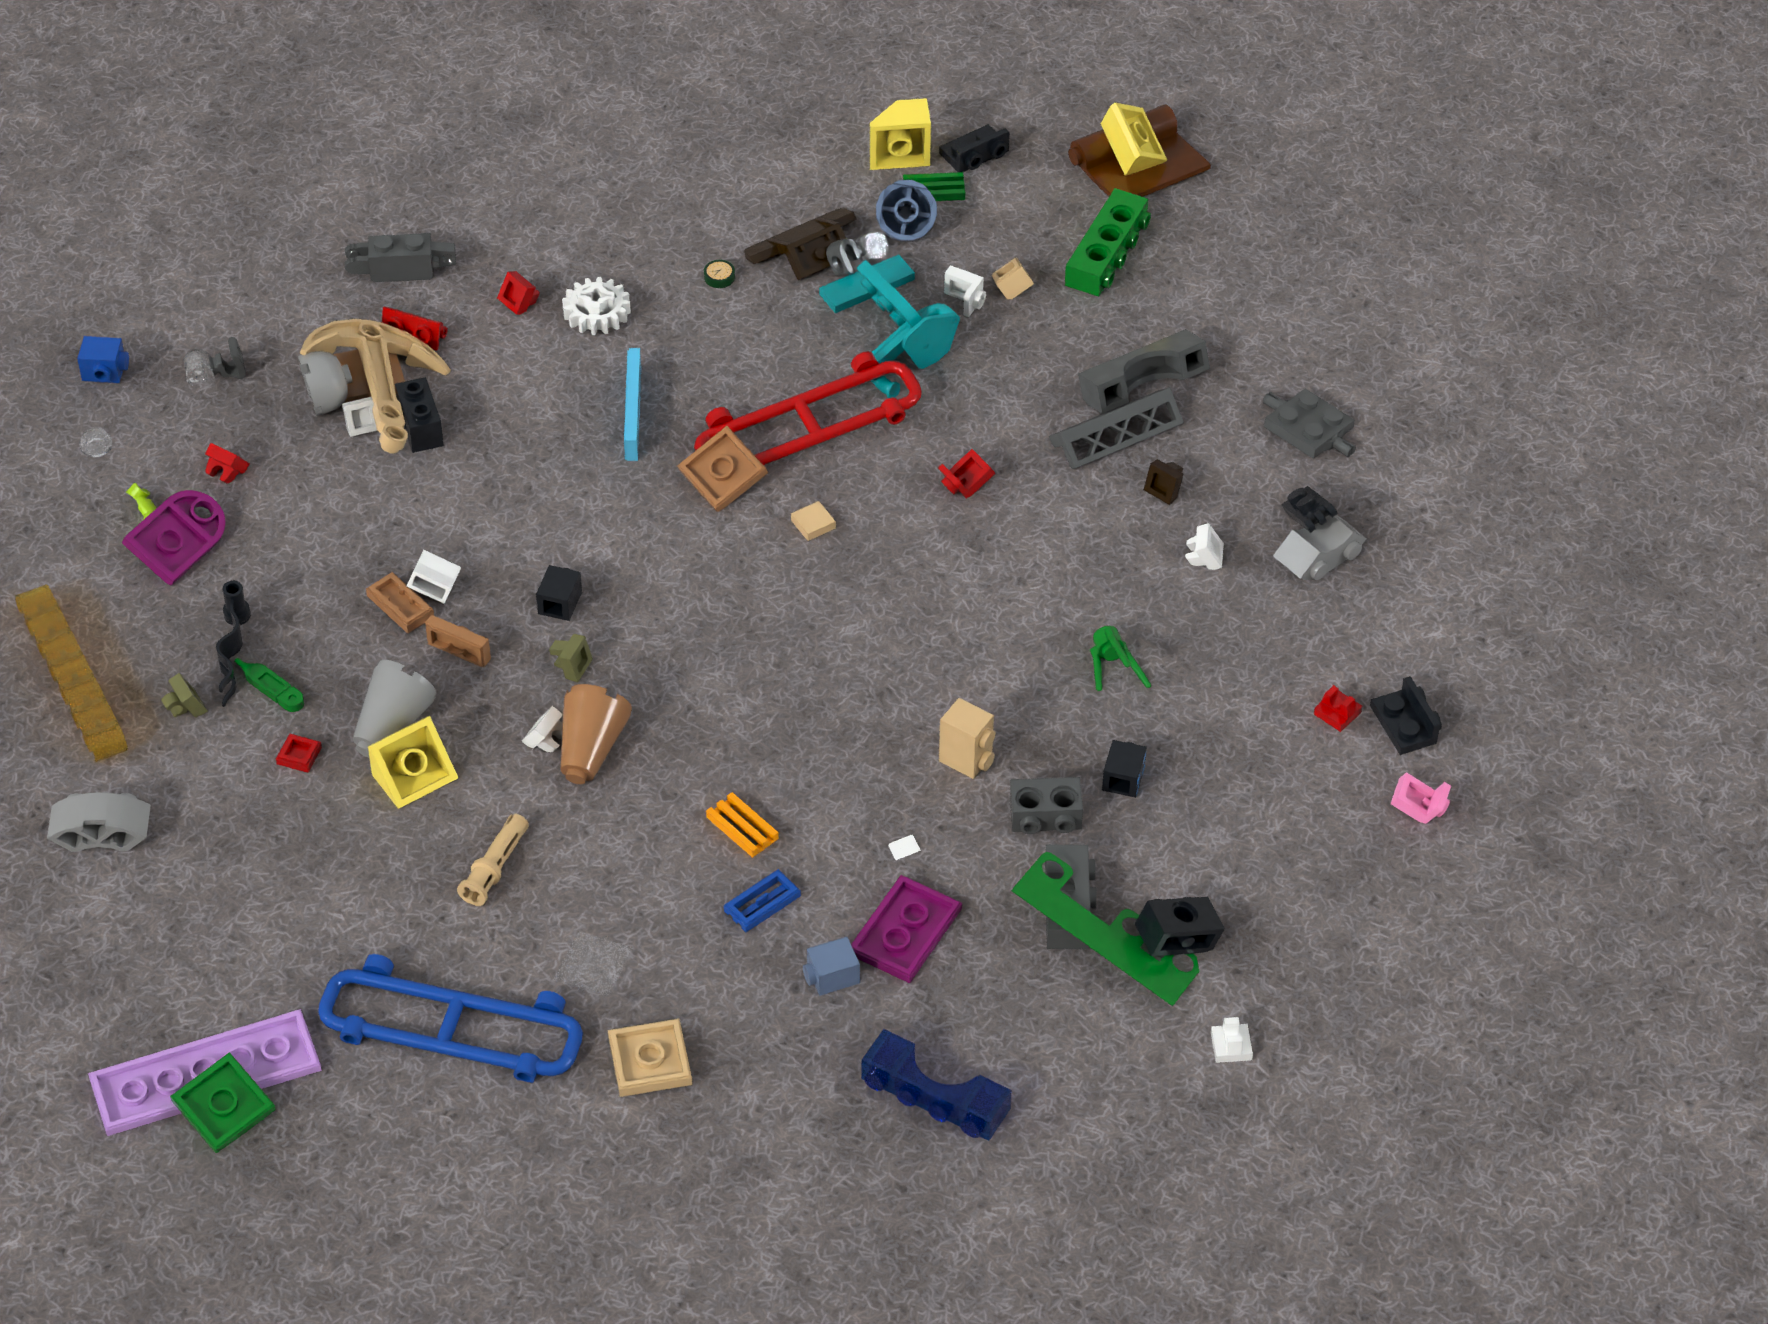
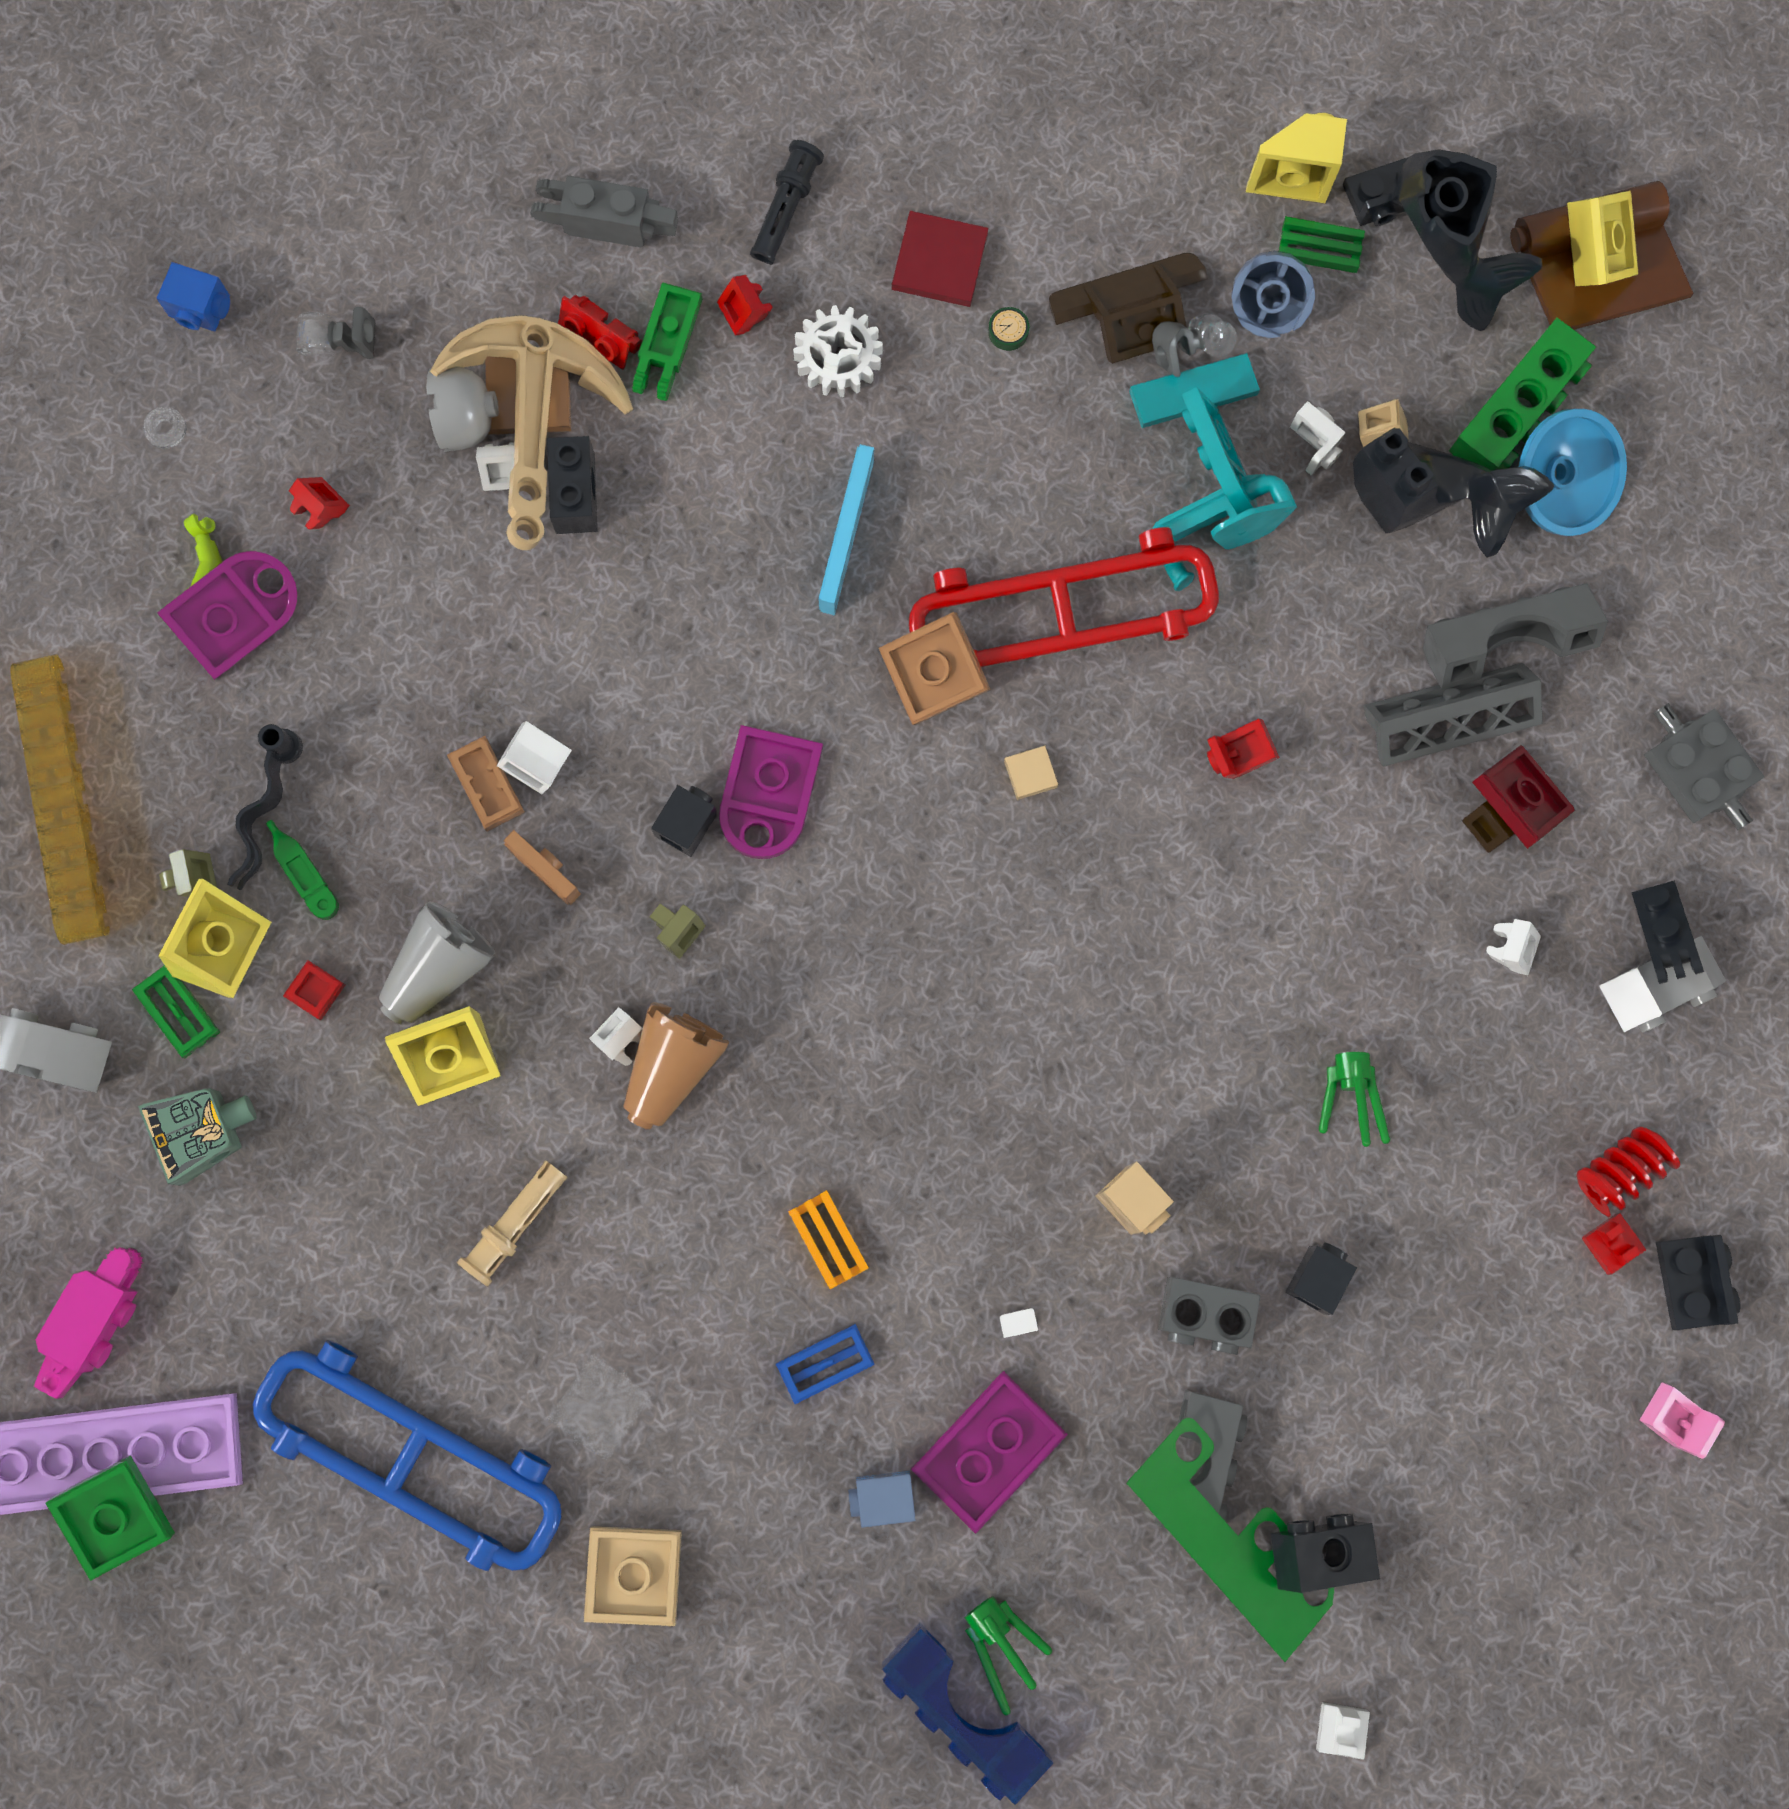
camera: 10 degrees right, 30 degrees up
(172, 982) = (85, 1320): none -> dark pink hinge
(201, 806) = (197, 1039): none -> green tile
(214, 728) = (213, 940): none -> light yellow slope
(228, 849) = (194, 1131): none -> sand green torso
(466, 322) = (667, 337): none -> green hinge
(525, 256) = (797, 186): none -> black pin
(617, 565) = (769, 788): none -> magenta tile
(656, 244) = (940, 258): none -> dark red tile
(940, 1029) = (989, 1623): none -> green plant
(1013, 123) = (1449, 206): none -> black hips
(1040, 303) = (1411, 482): none -> black hips
(1154, 270) = (1588, 468): none -> dark azure dish
(1181, 458) = (1524, 796): none -> dark red tile
(1330, 658) = (1625, 1167): none -> red piece

